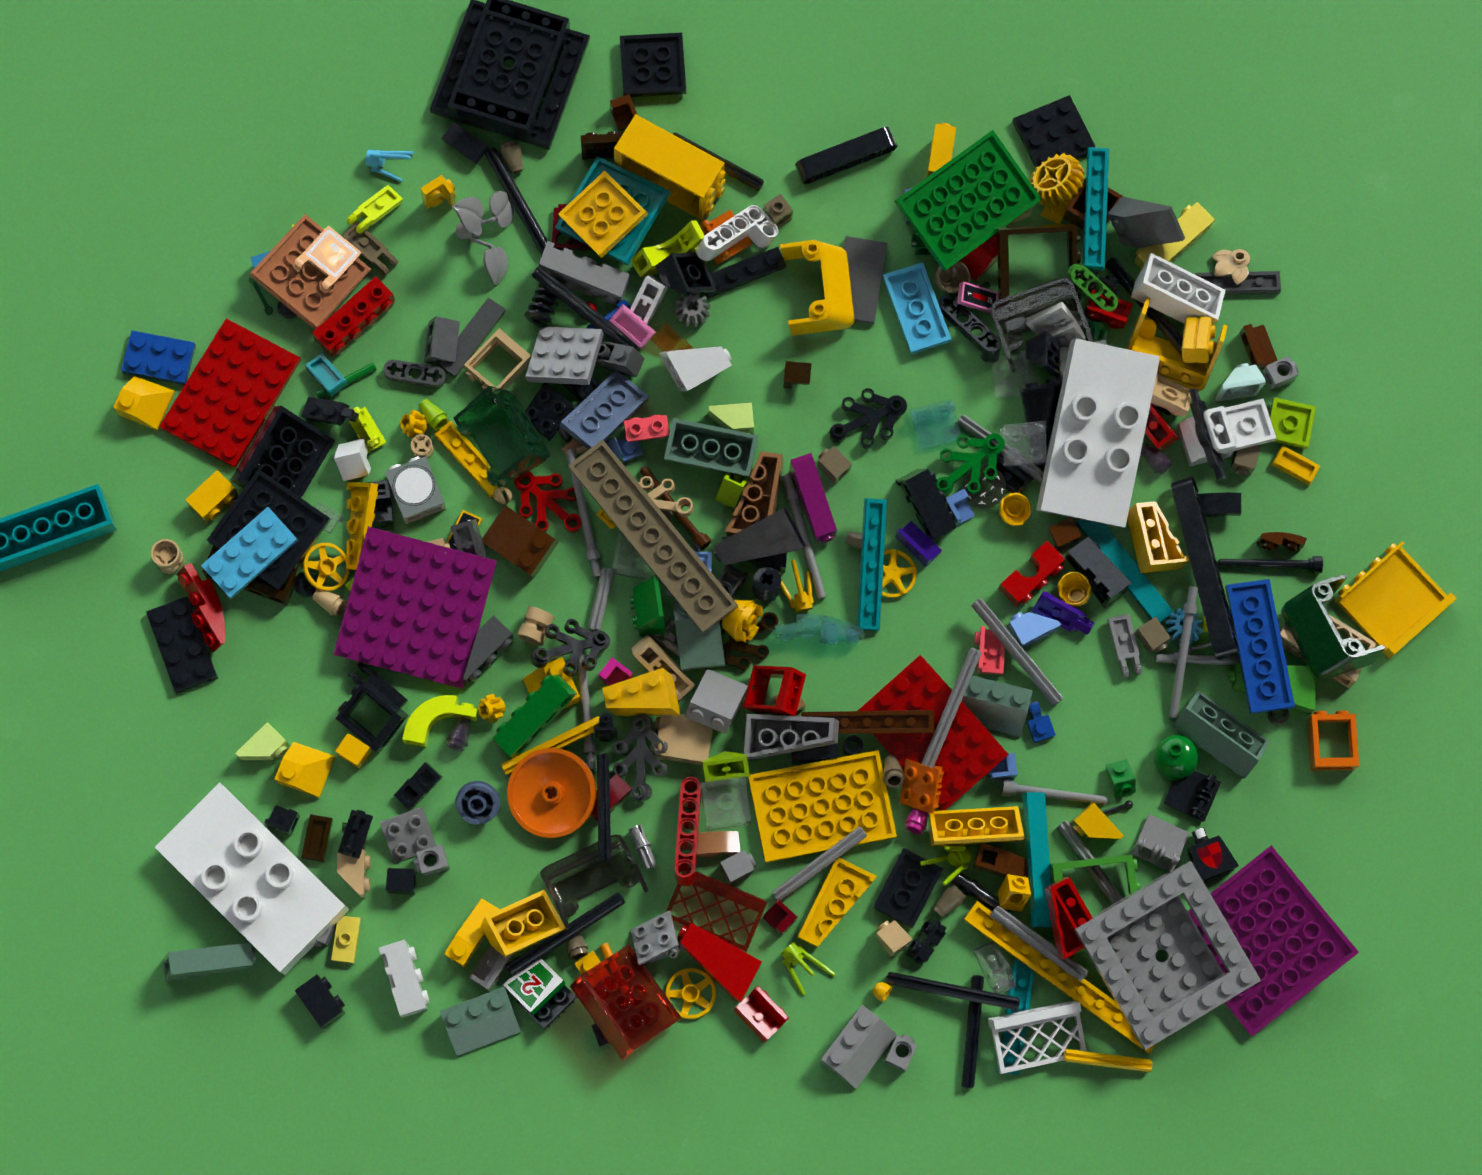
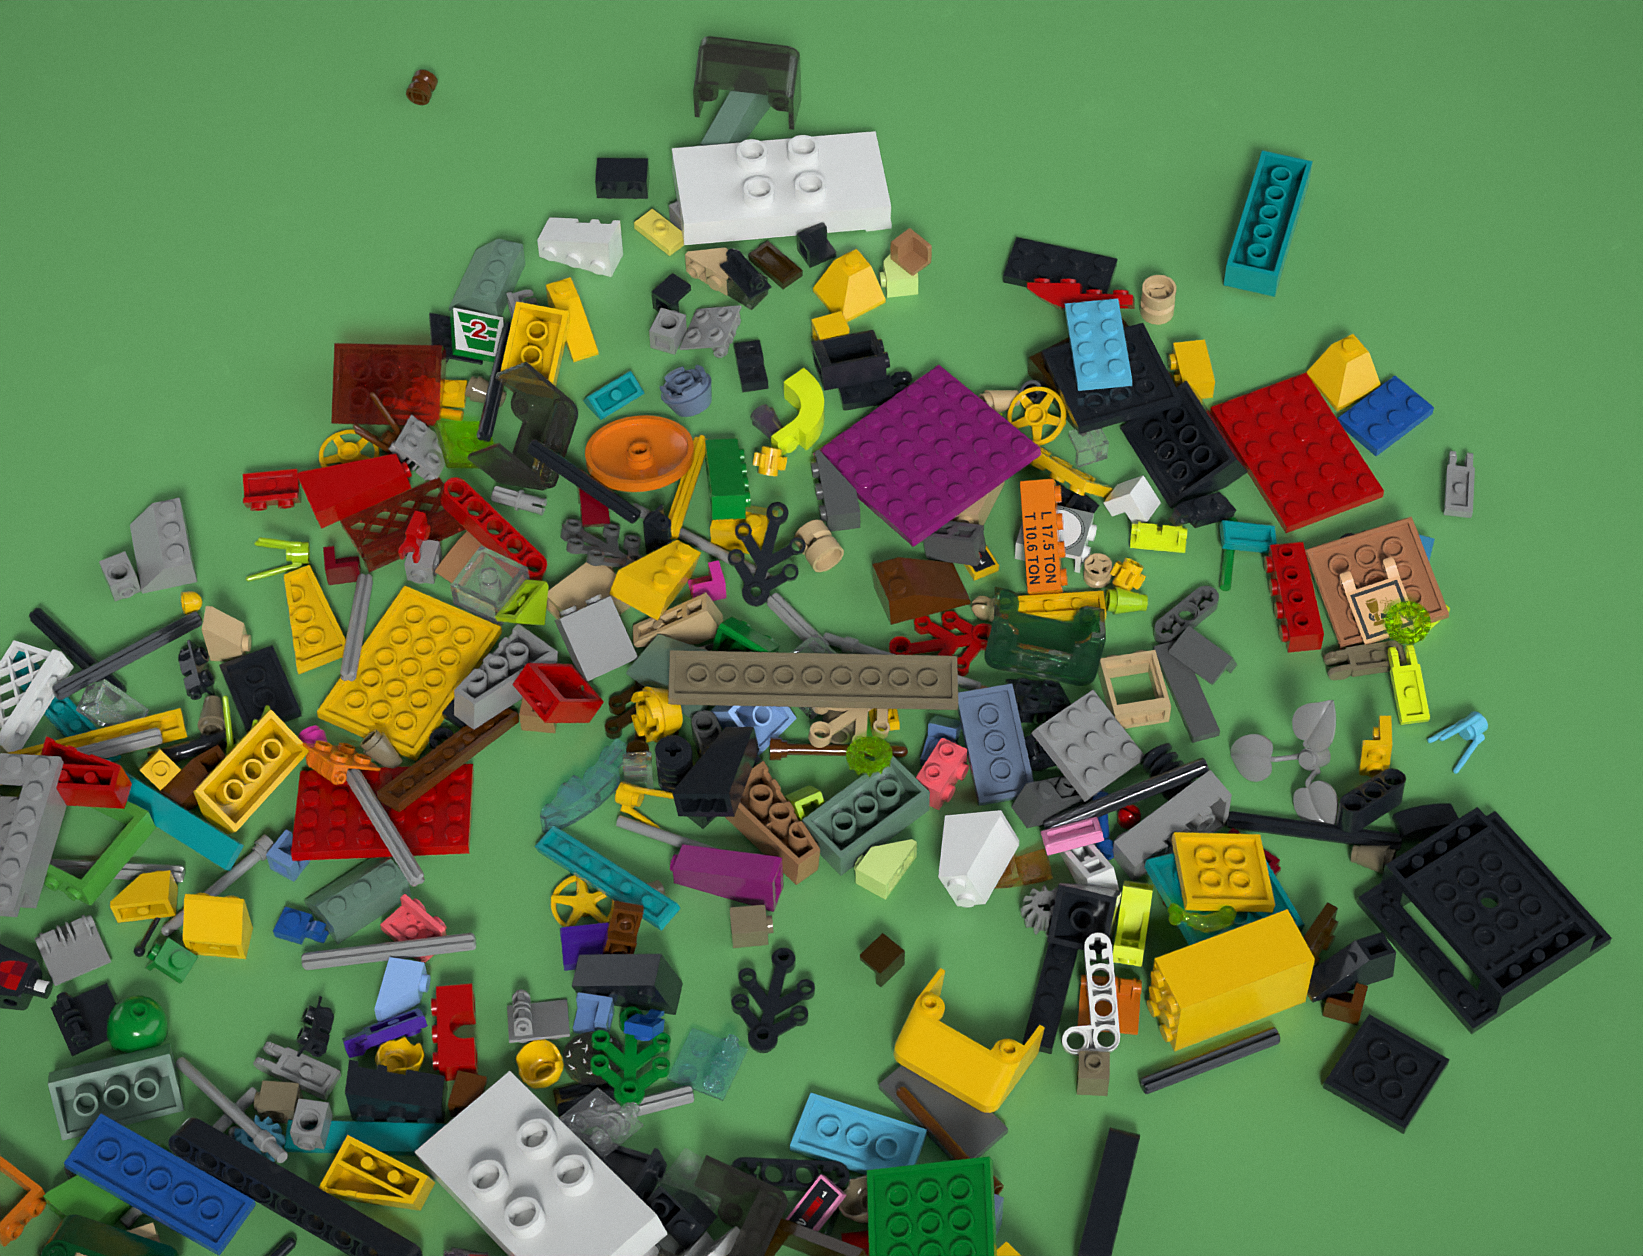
camera: 135 degrees right, 20 degrees down
(175, 970) = (748, 69): none -> clear smoke windscreen
(186, 276) = (1459, 487): none -> light grey hinge
(254, 736) = (911, 252): none -> medium nougat panel
(328, 221) = (1407, 610): none -> clear neon green gear
(434, 481) = (1042, 537): none -> orange brick
(469, 172) = (1371, 800): none -> black beam
(510, 858) = (614, 396): none -> teal slope
(598, 115) = (1360, 962): none -> black slope
(630, 918) = (458, 440): none -> clear neon green tile
(646, 196) = (1206, 923): none -> clear neon green arm
(664, 967) = (388, 437): none -> reddish brown plant
(675, 456) = (874, 747): none -> clear neon green gear
(731, 873) = (416, 533): none -> red plate
(783, 606) = (638, 768): none -> clear panel
(890, 220) = (937, 1130): none -> reddish brown piece
(904, 521) = (623, 928): none -> reddish brown slope
(948, 465) = (645, 1026): none -> blue plate
(988, 533) = (536, 1020): none -> light grey hinge
(1083, 763) = (216, 926): none -> yellow slope
(1089, 659) = (316, 1029): none -> black hinge
(1147, 608) = (307, 1113): none -> light grey brick

